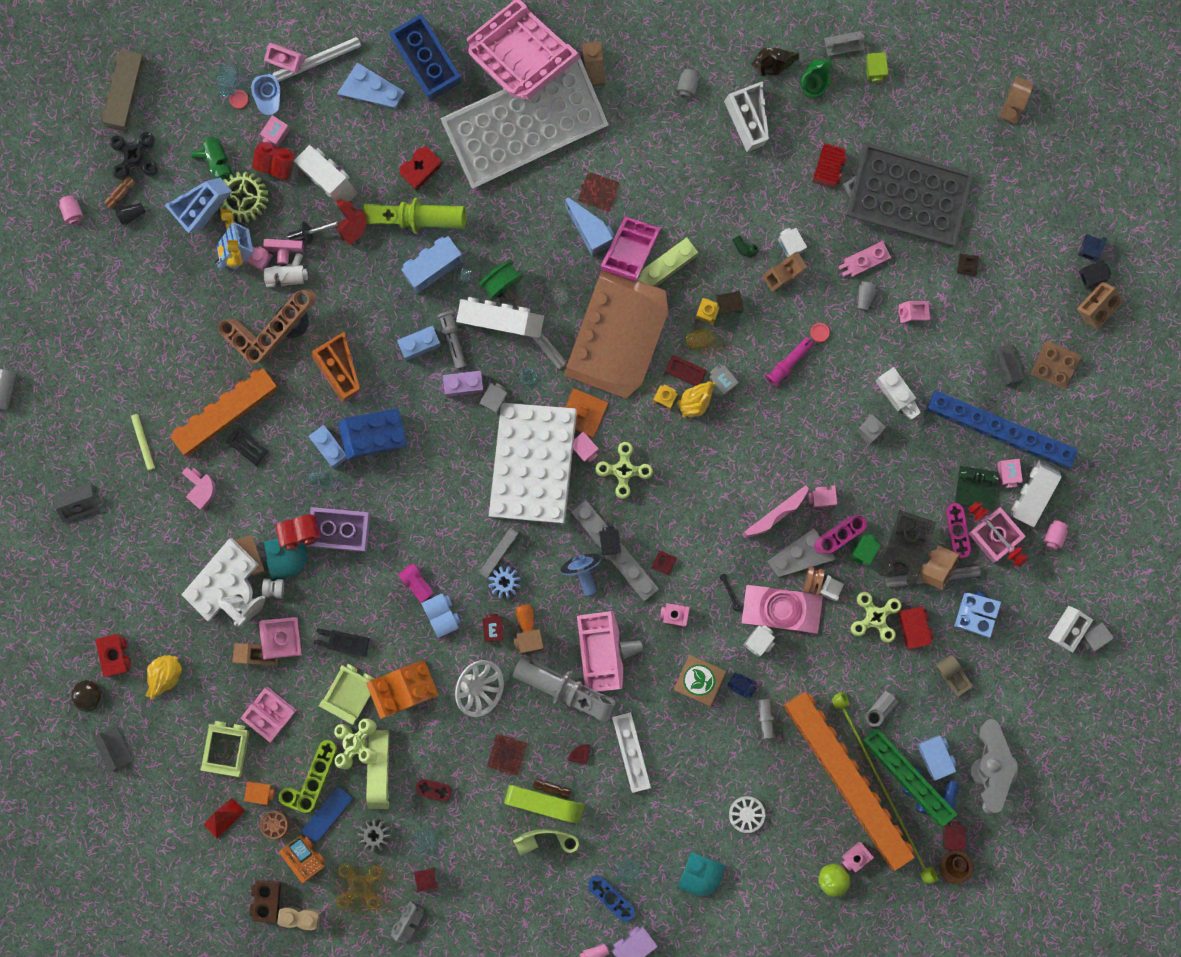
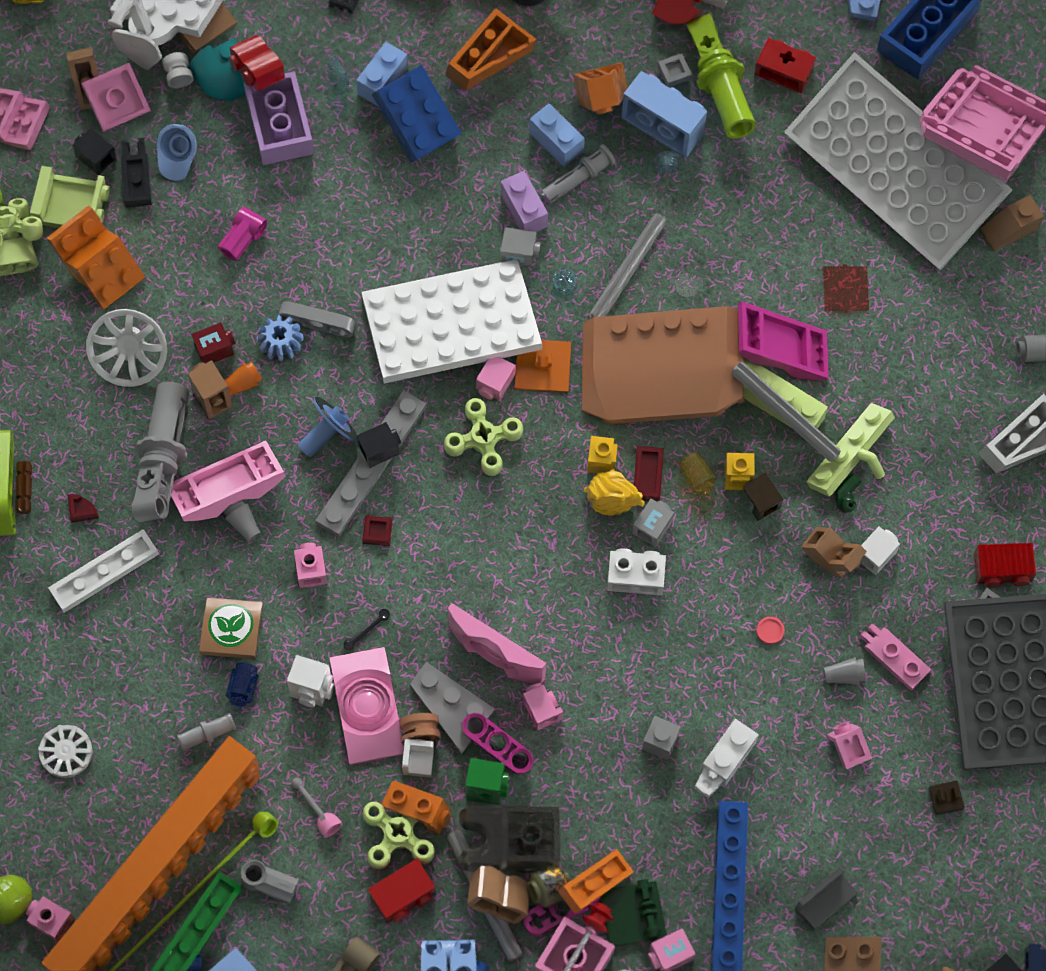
camera: 70 degrees right, 15 degrees down
(316, 666) = (94, 151): none -> black brick
(338, 608) = (175, 151): none -> light blue piece
(396, 244) = (674, 70): none -> light grey plate
(399, 300) = (601, 87): none -> orange wedge
(440, 615) = (209, 276): light blue brick -> none
(500, 318) = (627, 217): white wedge -> none
(501, 281) = (676, 202): green wheel -> none
(507, 754) = (52, 418): clear red piece -> none
(592, 229) = (785, 288): light blue slope -> none
(683, 266) = (786, 411): none -> light grey axle
(717, 232) = (853, 448): none -> yellowish green plate
(754, 403) = (636, 572): none -> white brick
(784, 368) = (700, 596): dark pink pin -> none
(852, 660) = (327, 822): none -> hinge
(863, 600) = (418, 805): none -> orange bracket
(946, 534) = (545, 885): none -> olive head
(953, 503) = (595, 881): none -> orange plate

